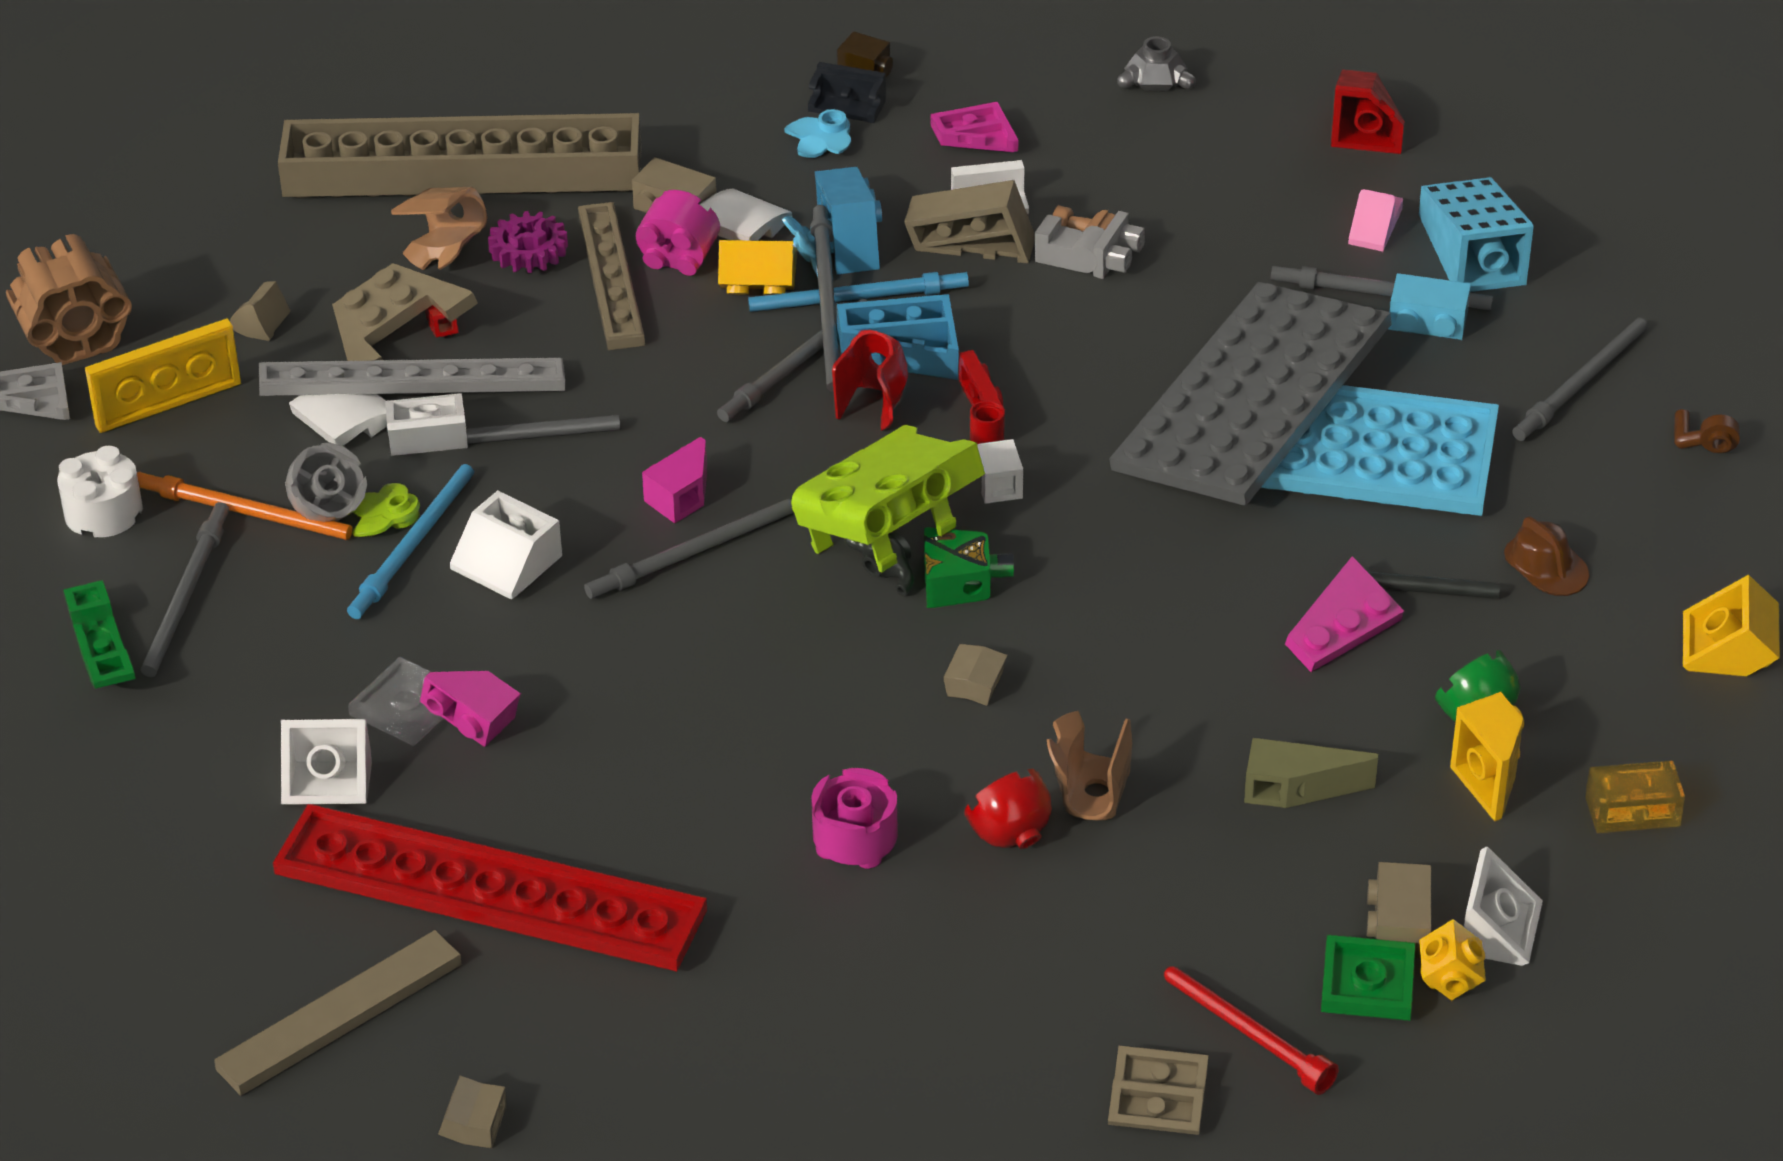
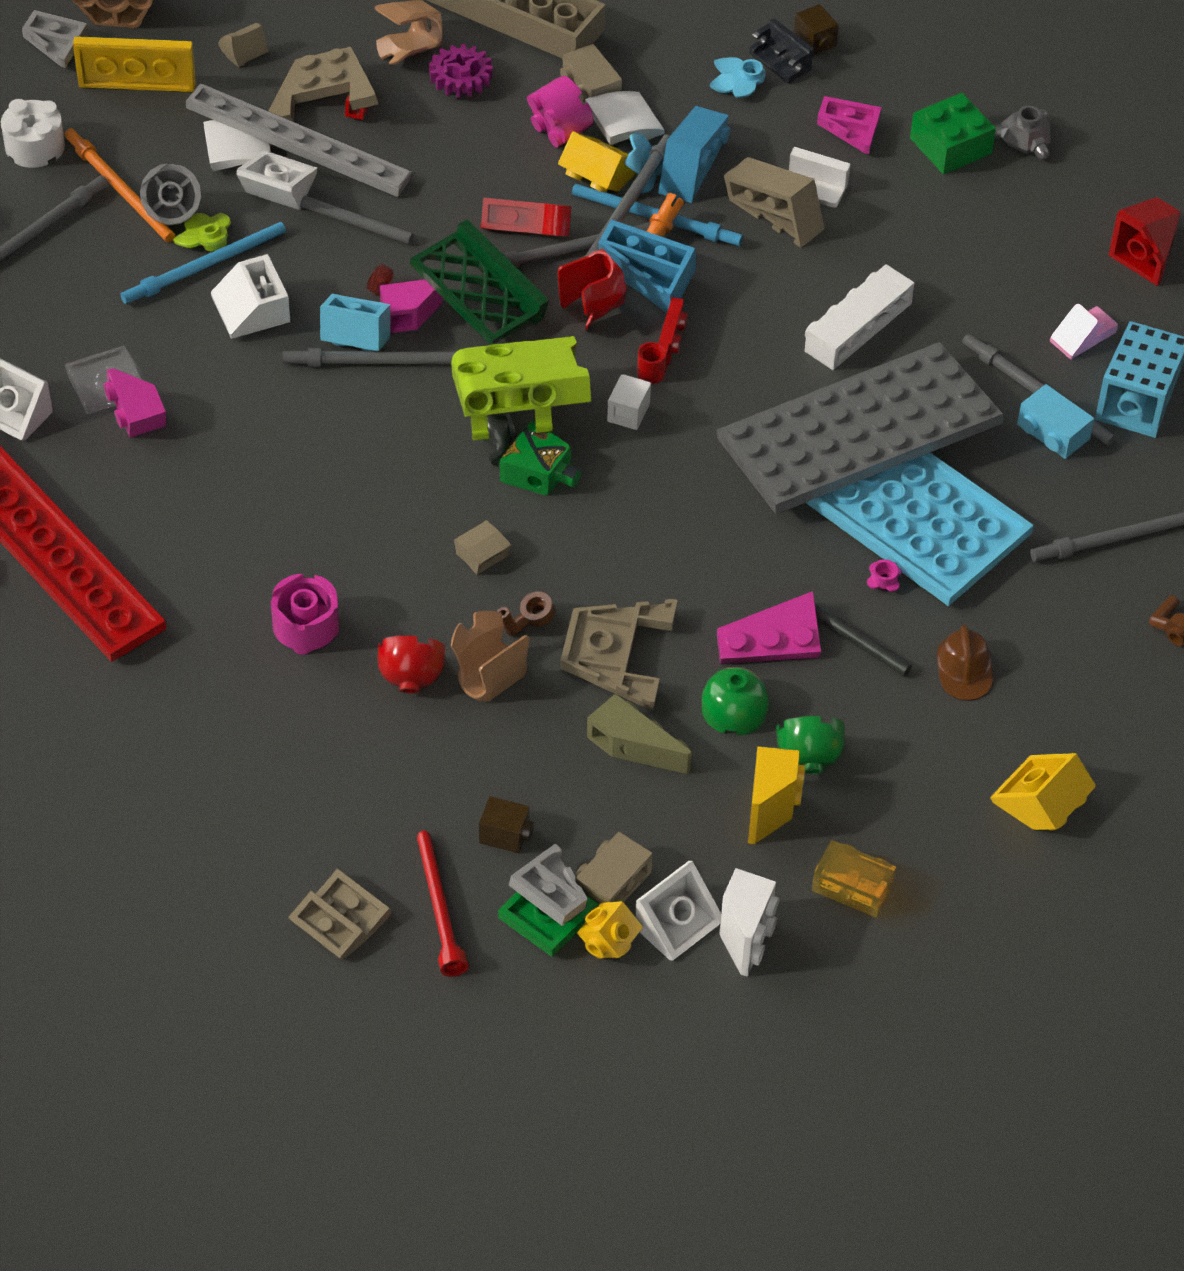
camera: 30 degrees right, 10 degrees up
(611, 276) = (499, 123): dark tan tile -> none
(627, 471) = (380, 276): none -> clear red tile
(645, 520) = (355, 322): none -> medium azure brick
(729, 347) = (526, 217): none -> red plate
(752, 408) = (496, 271): none -> dark green fence
(875, 281) = (662, 221): none -> orange pin
(1088, 243) = (853, 259): light grey hips -> none
(1089, 96) = (952, 133): none -> green brick
(1089, 694) = (529, 606): none -> reddish brown plate
(1152, 296) = (858, 316): none -> white brick
(1187, 710) = (602, 642): none -> dark tan wing
(1250, 918) = (505, 824): none -> dark brown brick
(1362, 947) = (550, 886): none -> light grey wing
(1364, 694) = (735, 701): none -> green cylinder
(1397, 515) = (884, 575): none -> dark pink plate
(1579, 879) = (748, 918): none -> white slope

